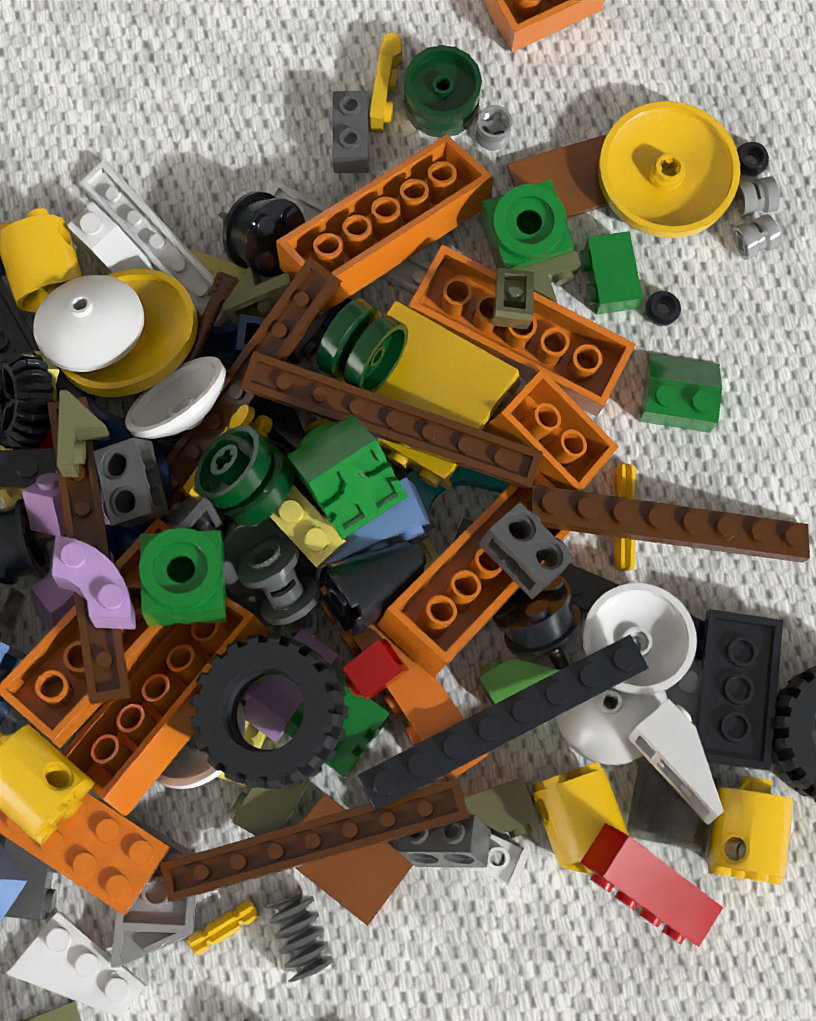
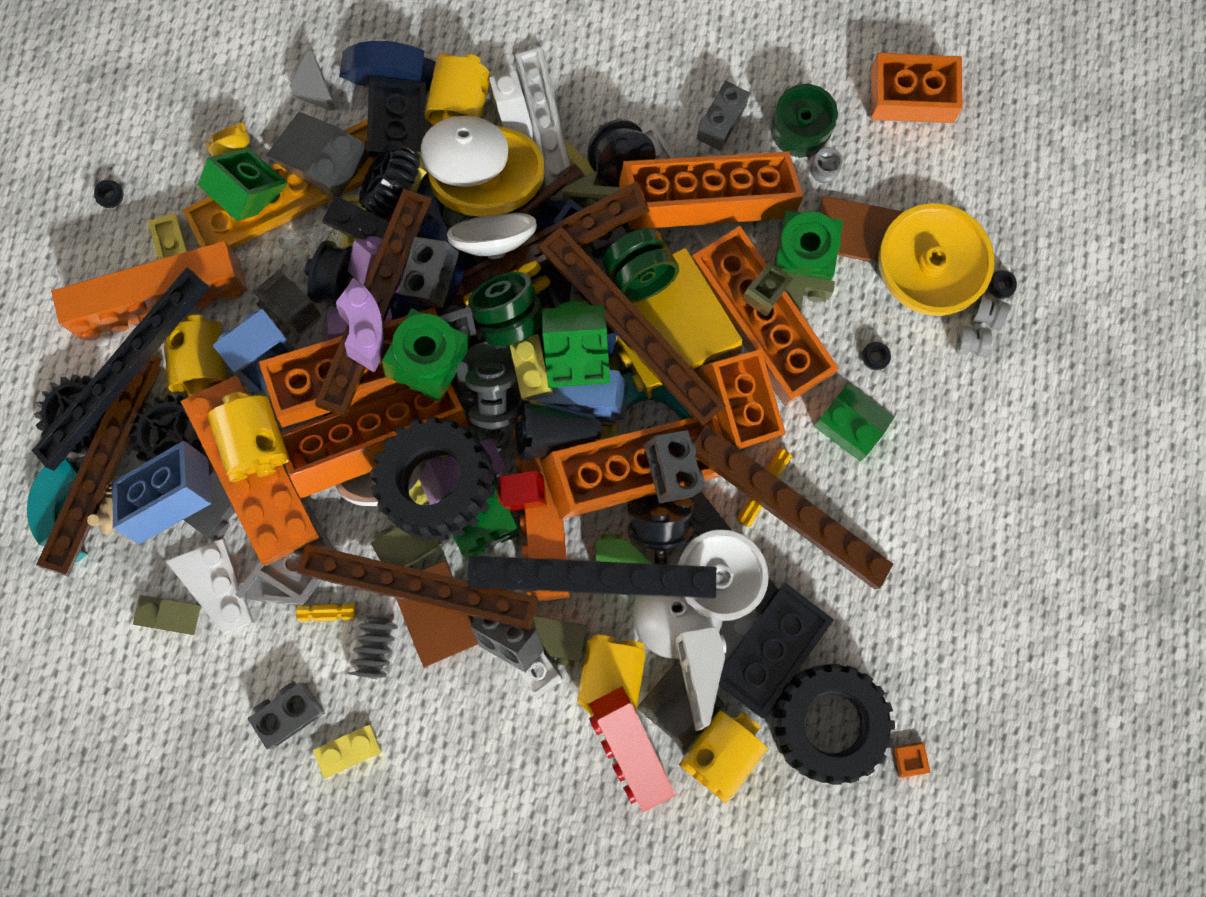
camera: 30 degrees right, 0 degrees up
(74, 425) = (408, 214): olive slope -> none
(385, 81) = (767, 93): yellow hinge -> none
(611, 272) = (853, 311): green brick -> none

